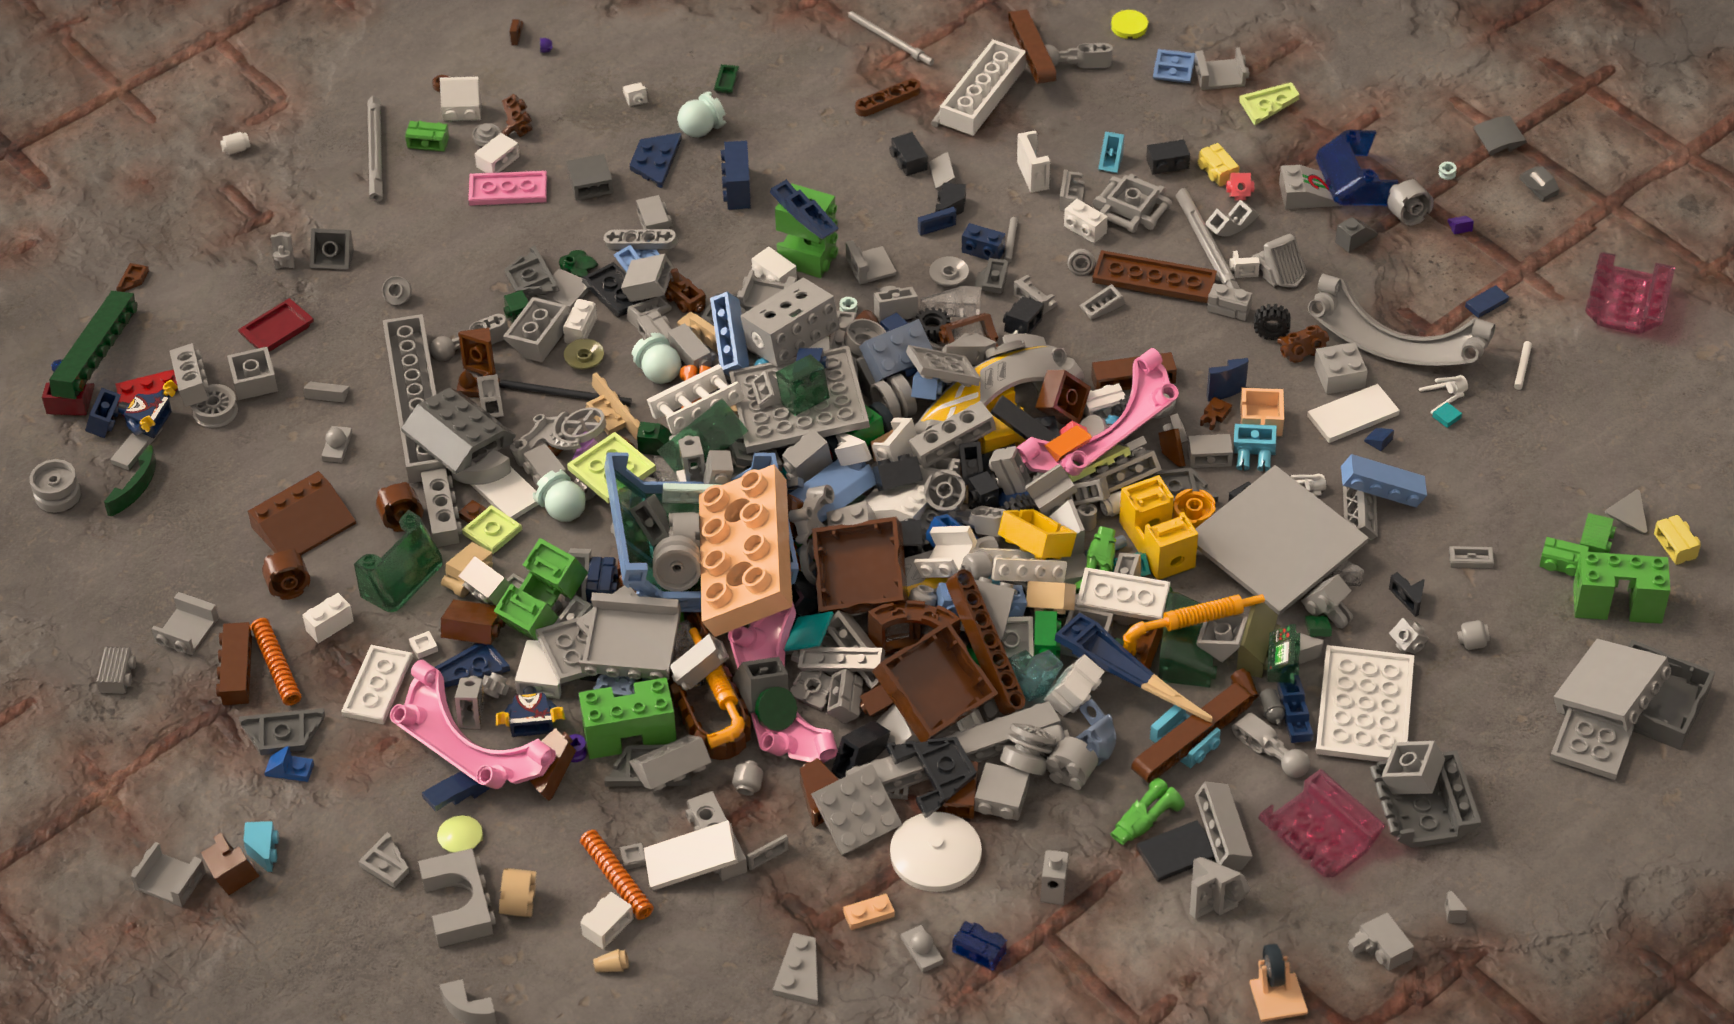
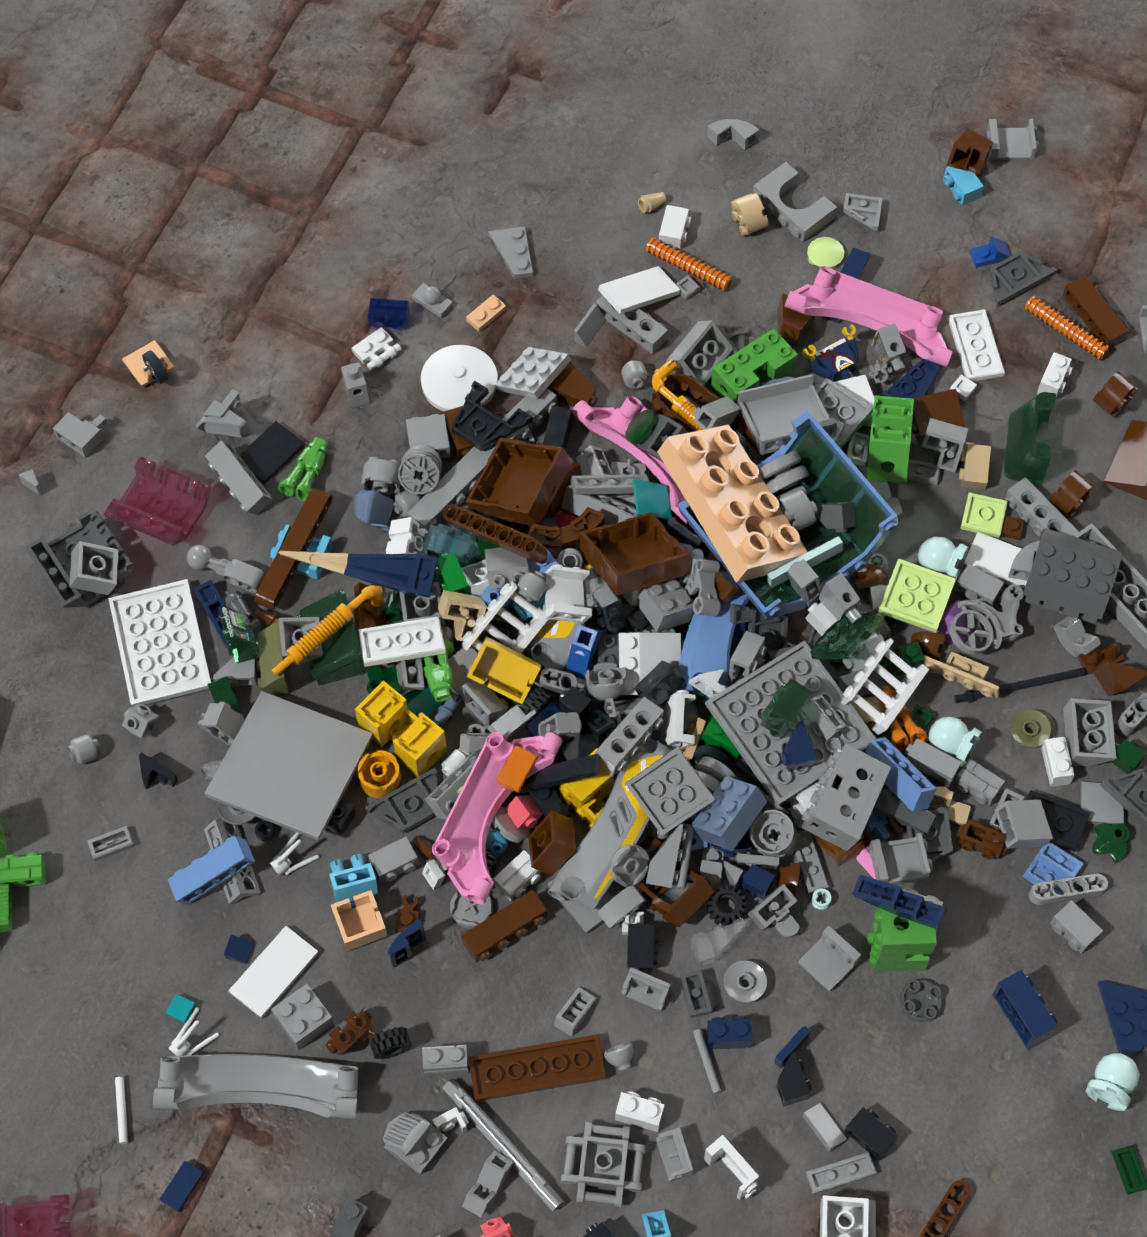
camera: 155 degrees right, 15 degrees up
(952, 145) = (841, 1173): none -> light grey tile
(1012, 923) = (373, 345): none -> white plate

